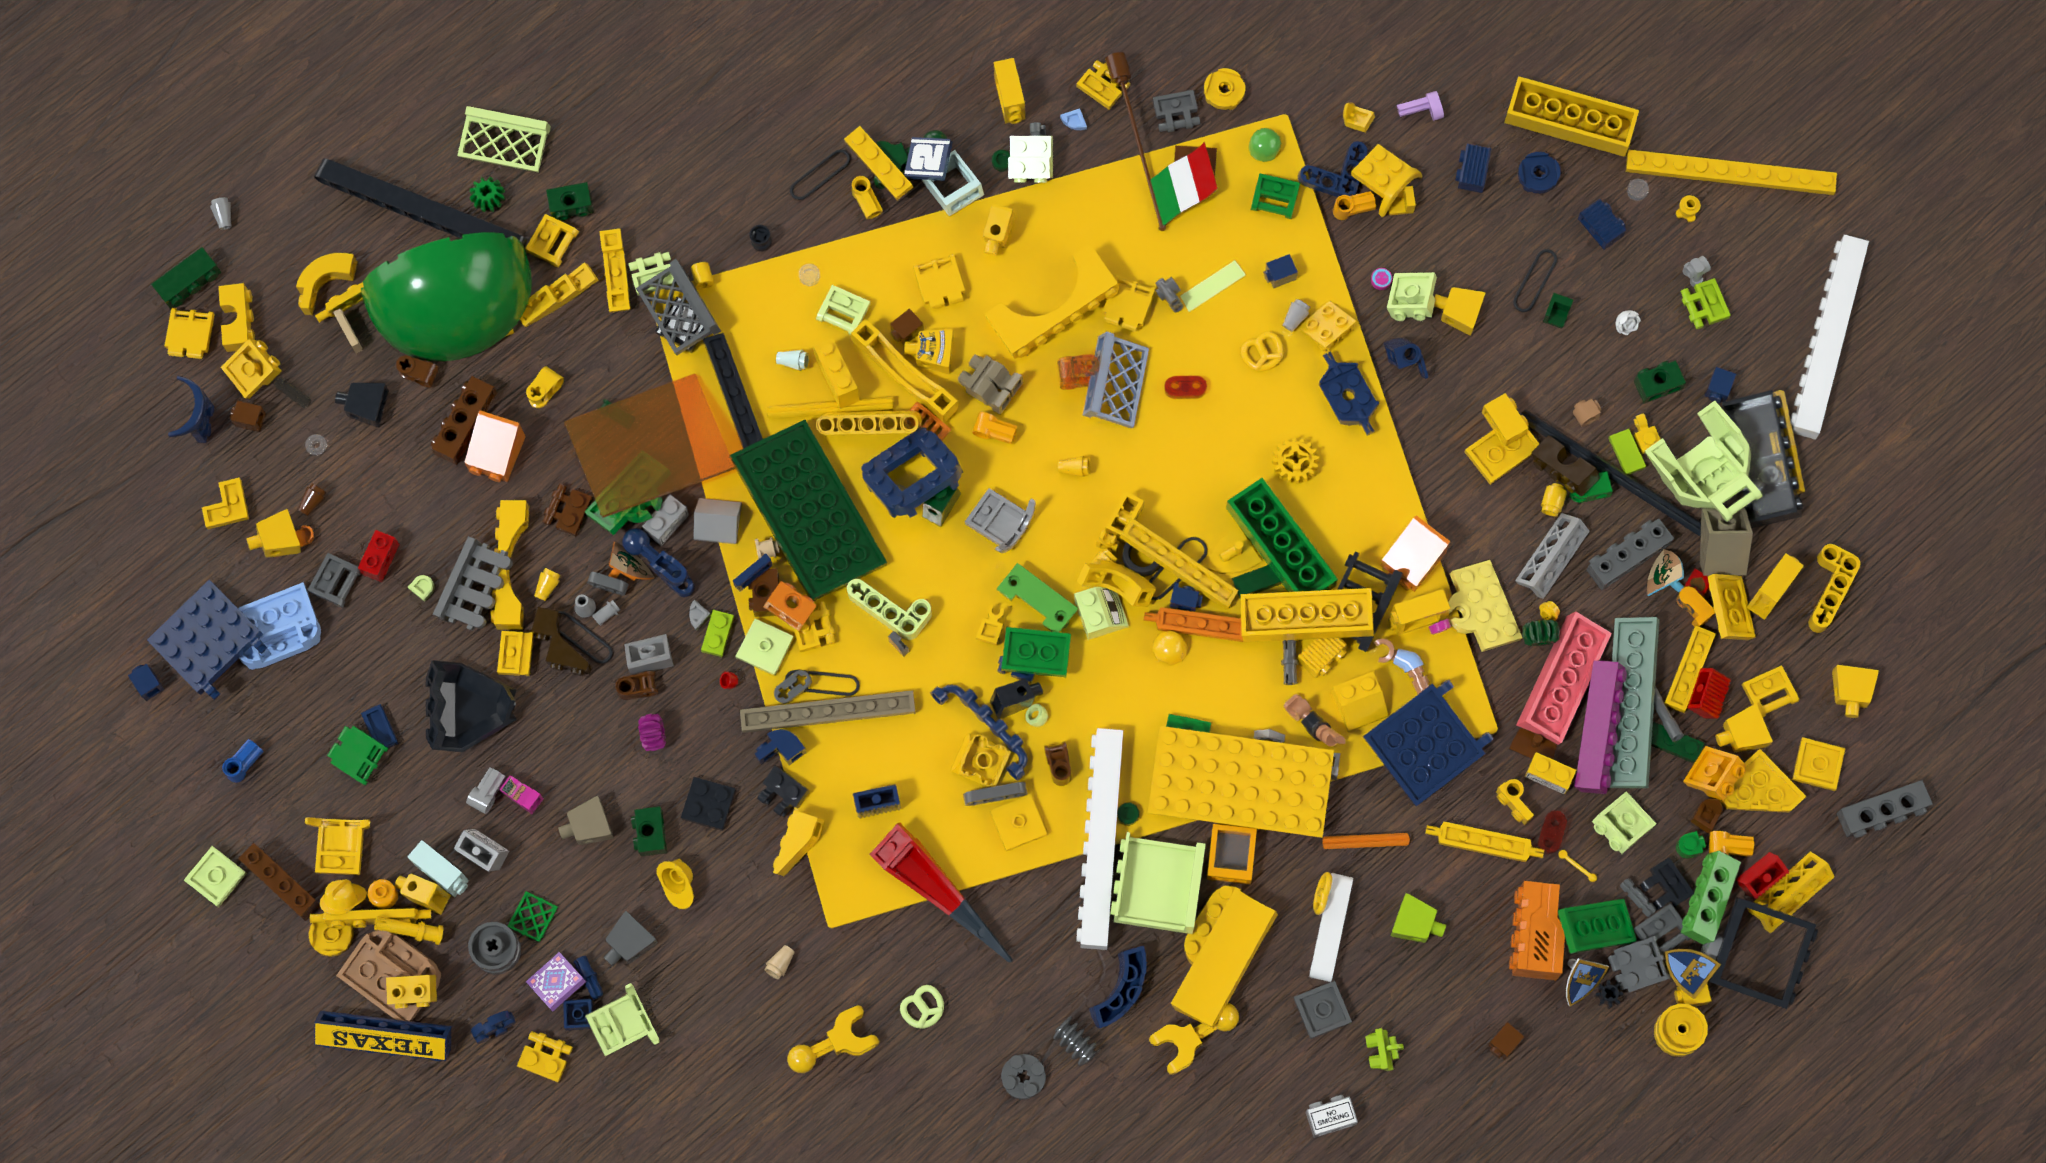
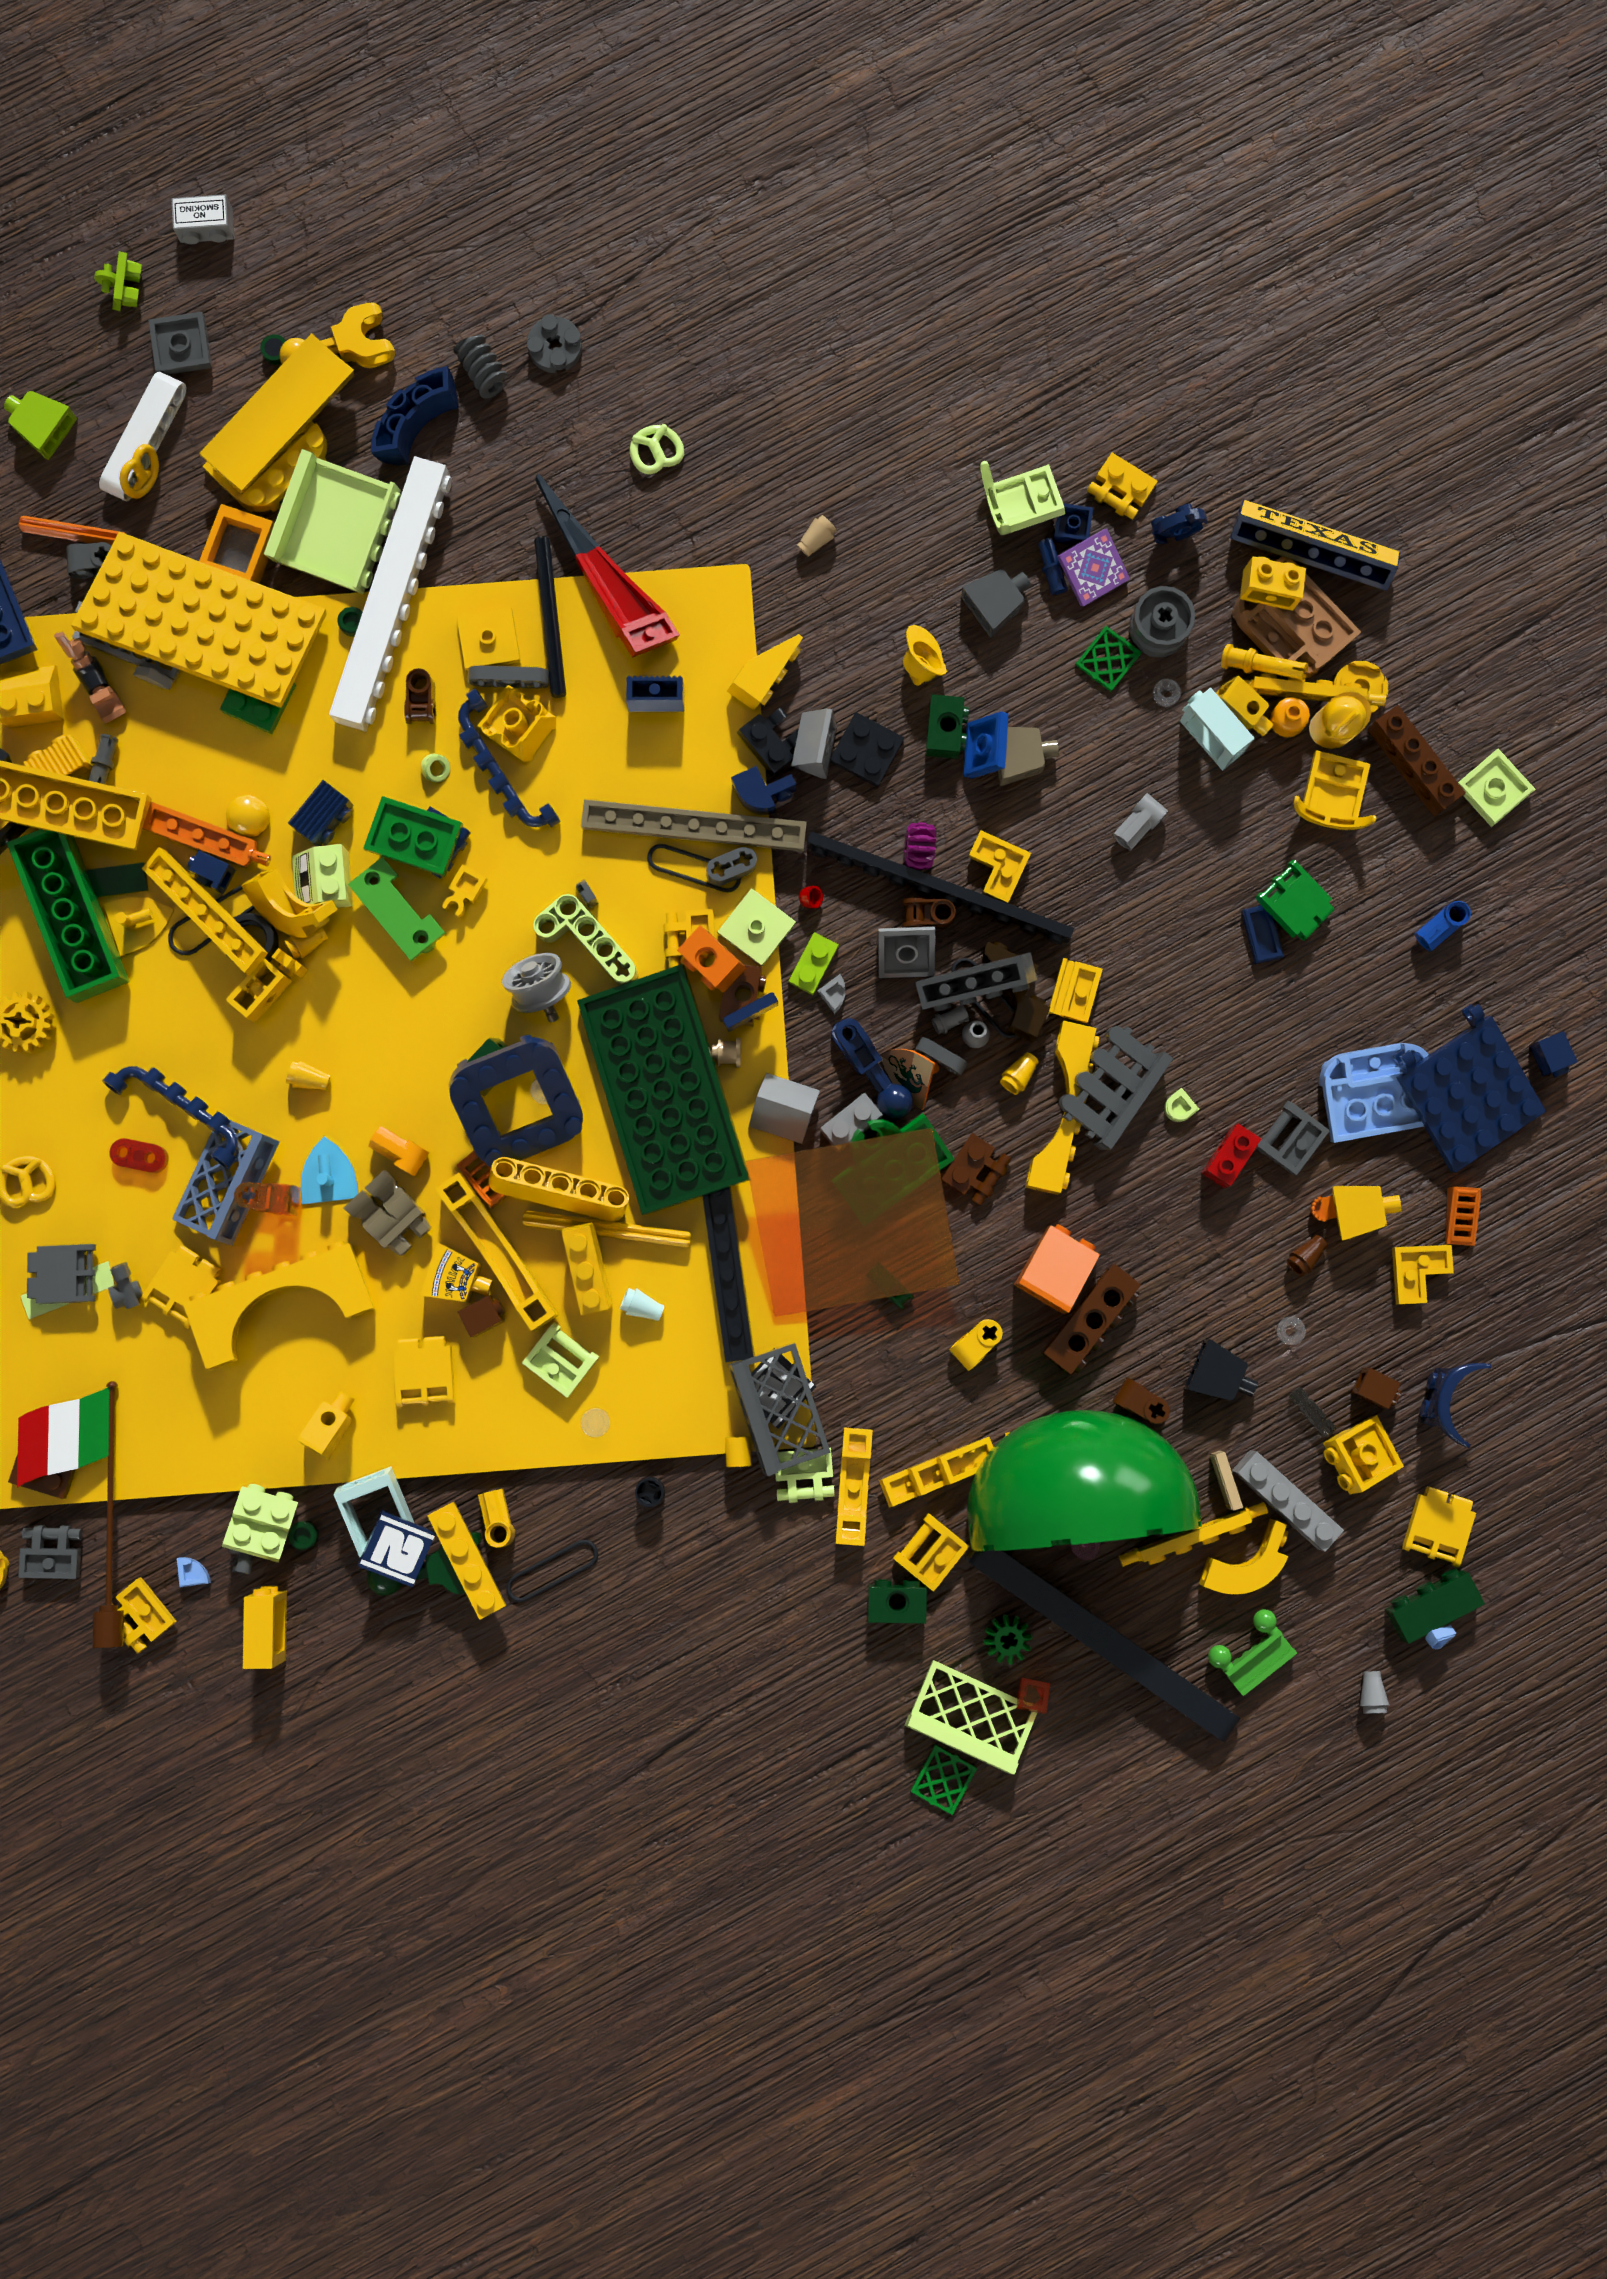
camera: 170 degrees left, 10 degrees up
(179, 257) = (1439, 1637): none -> light blue tile
(202, 567) = (1451, 1215): none -> orange slope
(236, 299) = (1367, 1558): yellow arch -> none
(302, 326) = (1287, 1500): none -> light grey brick
(306, 216) = (1257, 1662): none -> bright green gear
(462, 162) = (1033, 1695): none -> clear orange tile
(465, 706) = (1150, 931): black panel -> none
(481, 850) = (1159, 743): light grey brick -> none
(482, 891) = (1170, 685): none -> clear plate
(521, 84) = (961, 1790): none -> green window
(521, 794) = (1097, 808): dark pink leg -> none
(585, 739) = (1007, 864): none -> yellow plate
(589, 634) = (976, 981): none -> dark grey brick
(614, 819) = (986, 745): none -> blue tile
(623, 705) = (928, 884): none -> black plate
(748, 793) = (815, 742): none -> light grey slope
(840, 1039) = (762, 429): yellow piece -> none
(917, 563) = (537, 984): none -> light grey wheel
(974, 850) = (550, 617): none -> black axle
(1000, 520) = (420, 1025): light grey piece -> none
(1014, 697) = (455, 787): black torso -> none
(1044, 403) = (327, 1175): none -> medium azure shield
(1112, 658) = (321, 814): none -> dark blue brick
(1167, 432) = (175, 1095): none -> dark blue bar
(1217, 292) = (61, 1274): none -> dark grey plate
(1247, 1024) = (271, 347): none -> tile
(1346, 819) = (86, 559): none -> dark grey piece

